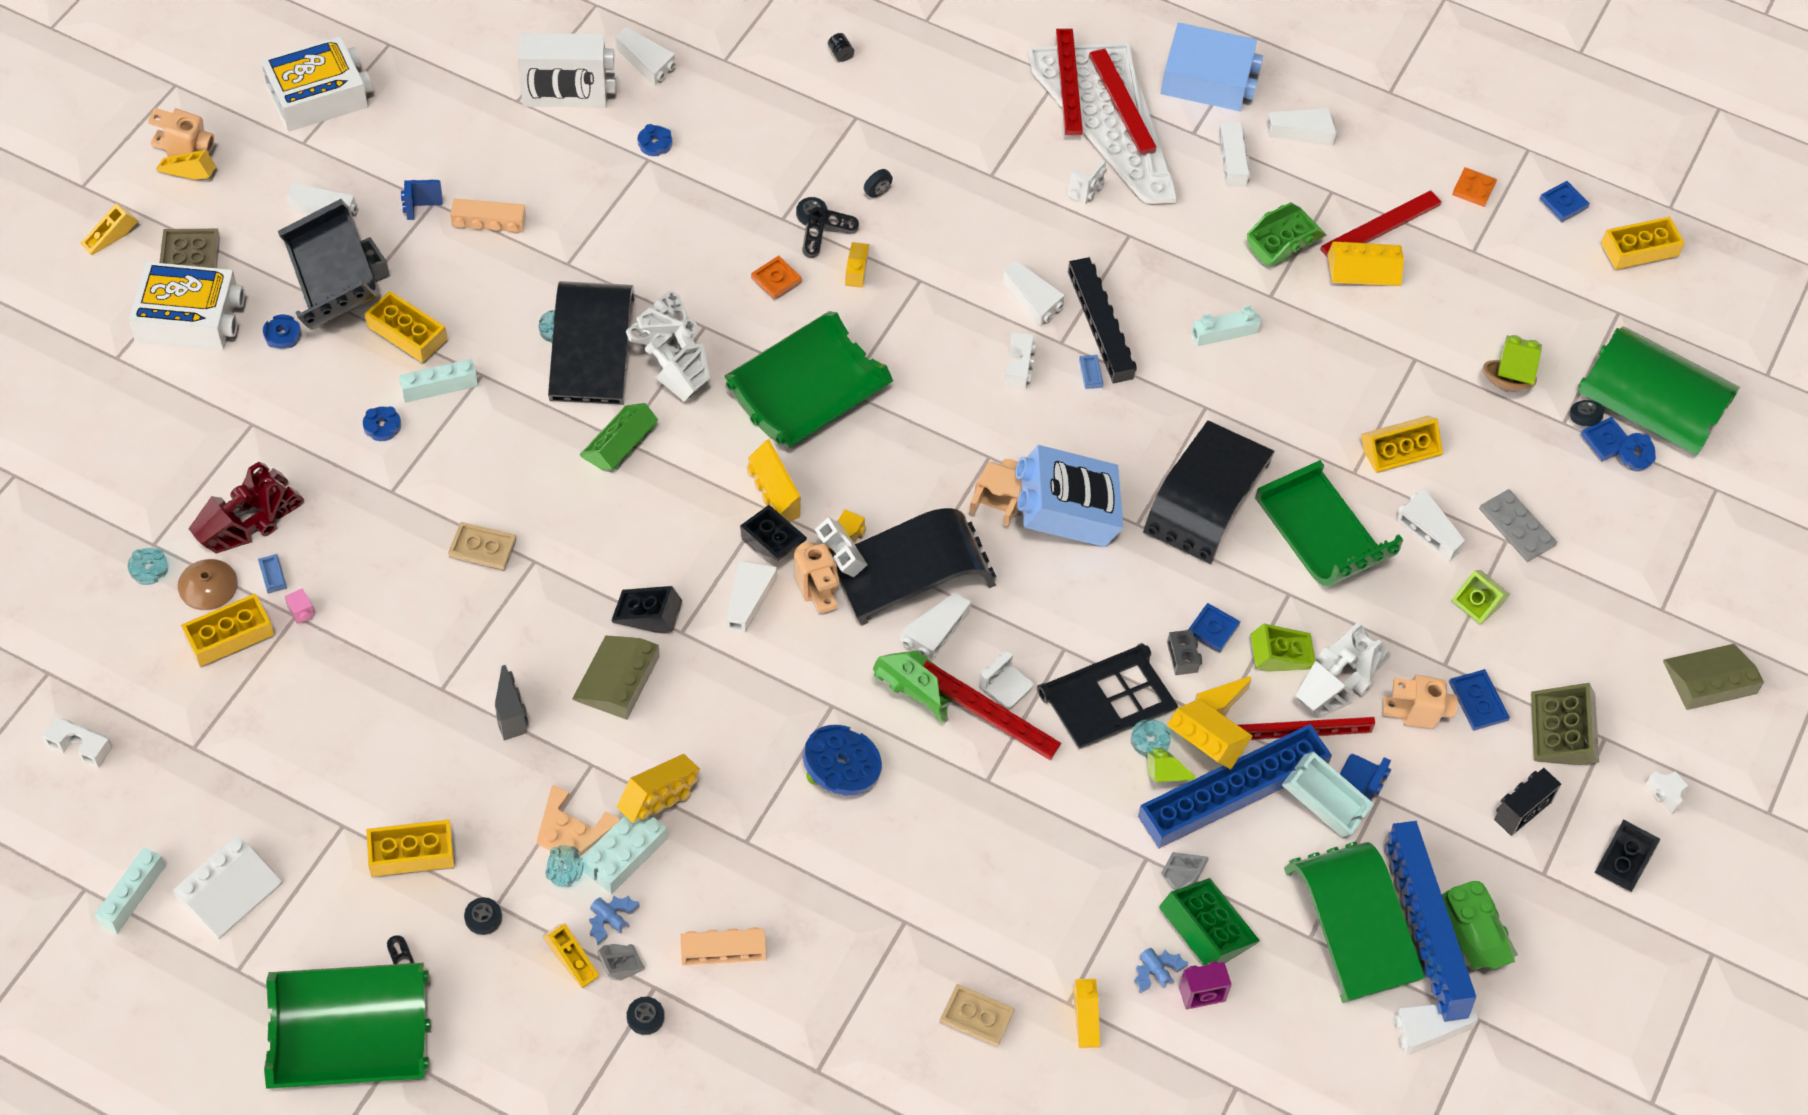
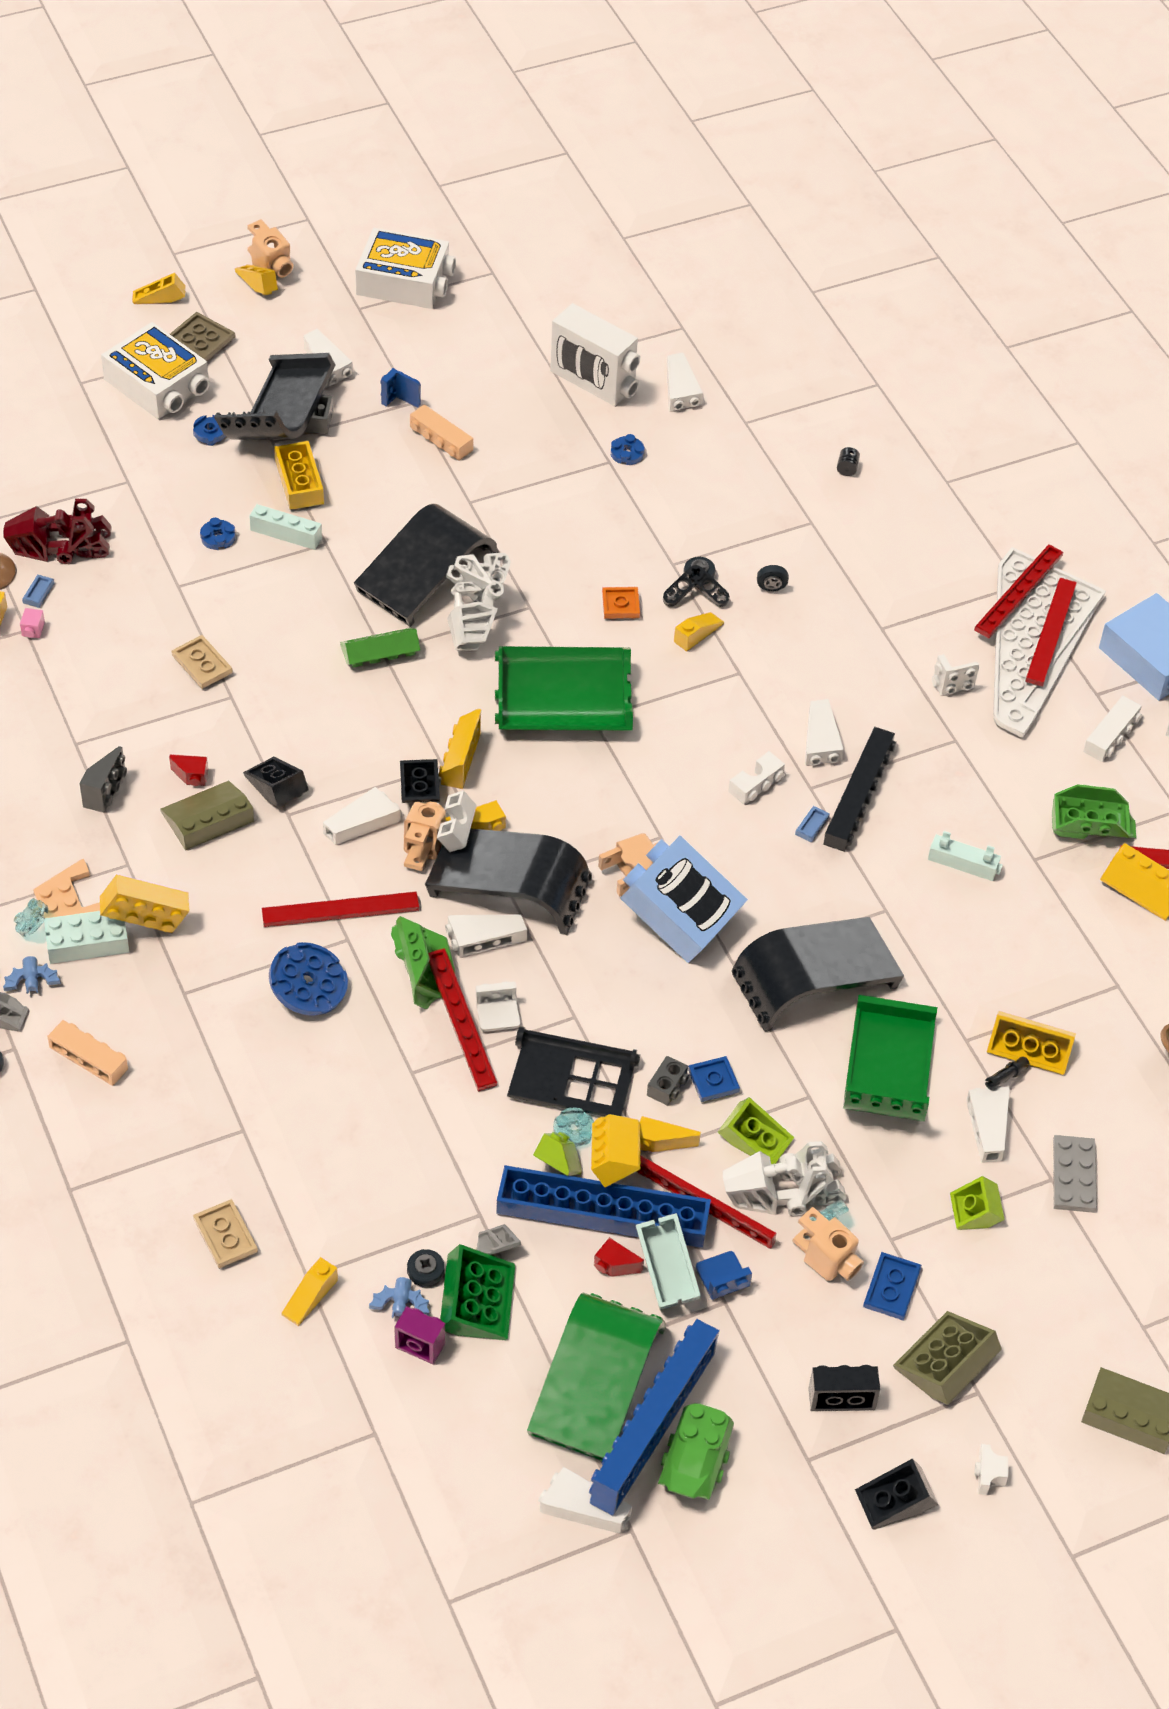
camera: 40 degrees right, 5 degrees down
(566, 647) = (190, 769): none -> red slope
(802, 684) = (340, 909): none -> red tile
(1146, 935) = (425, 1275): none -> black wheel
(1280, 820) = (617, 1260): none -> red slope
(1396, 669) = (832, 1210): none -> clear light blue plate
(1412, 485) = (1011, 1070): none -> black pin

